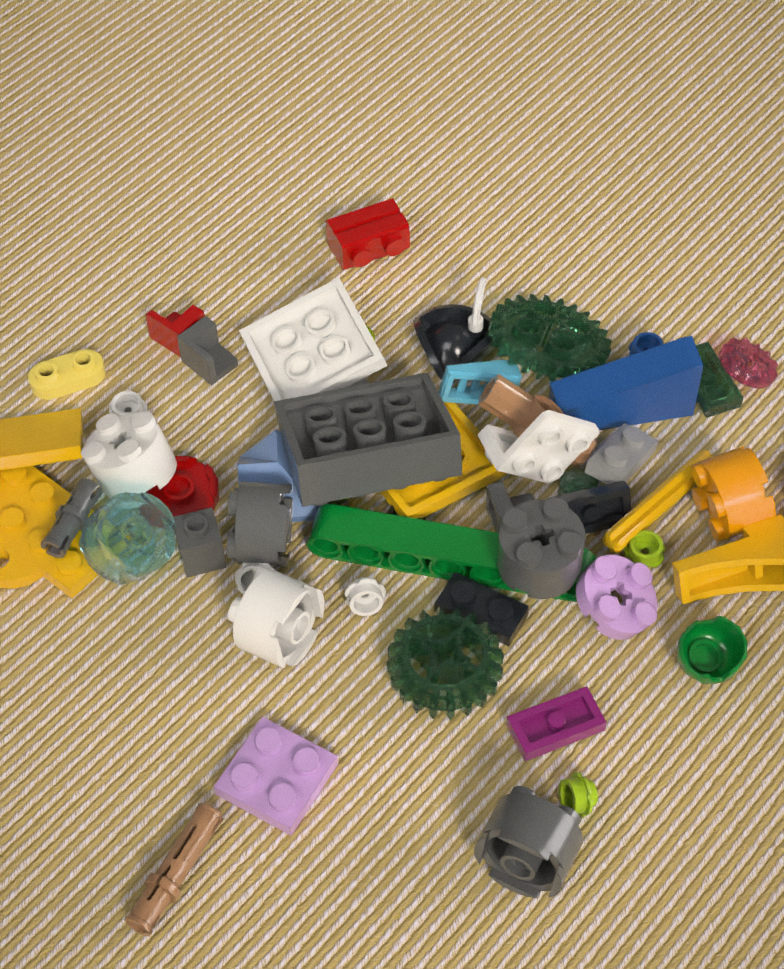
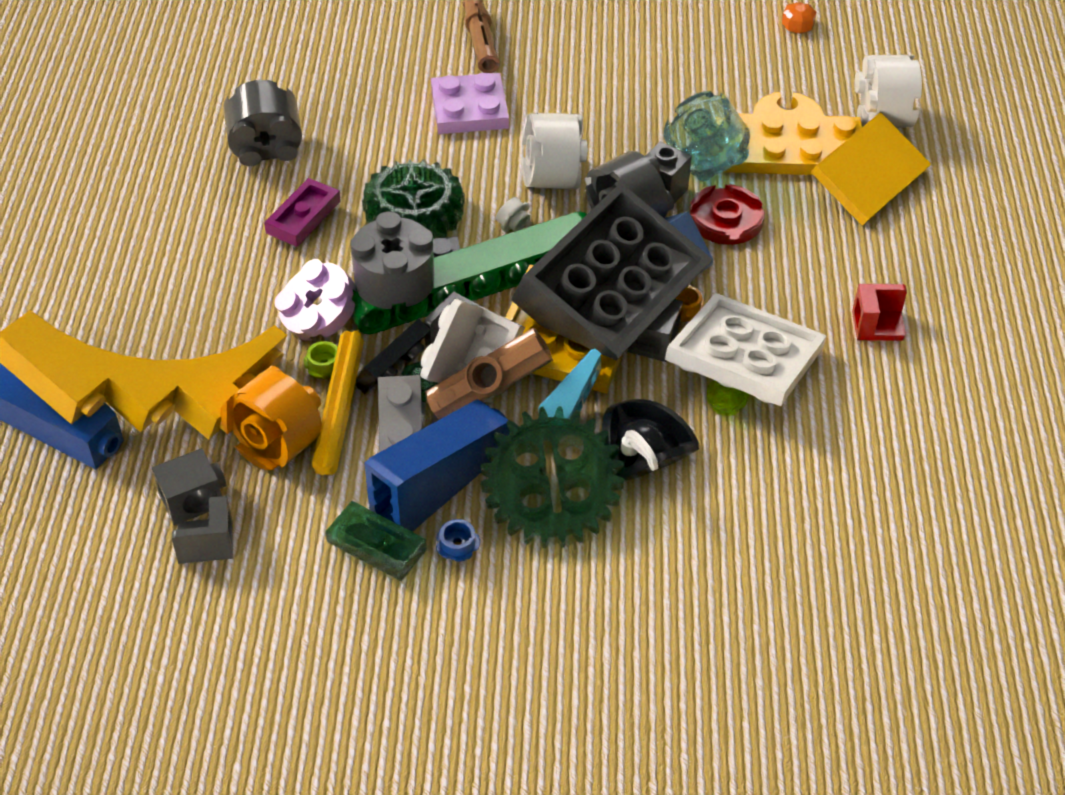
camera: 140 degrees right, 5 degrees down
(66, 374) = (915, 241): light yellow plate -> none
(71, 518) = (763, 131): dark grey pin -> none
(126, 402) = (834, 237): white plate -> none
(129, 454) = (777, 184): white brick -> none
(203, 353) = (830, 306): dark grey panel -> none
(368, 234) = (826, 492): red brick -> none
(578, 794) = (255, 182): lime plate -> none
(712, 650) = (214, 306): green hair -> none
(734, 359) = (362, 589): clear pink gear -> none

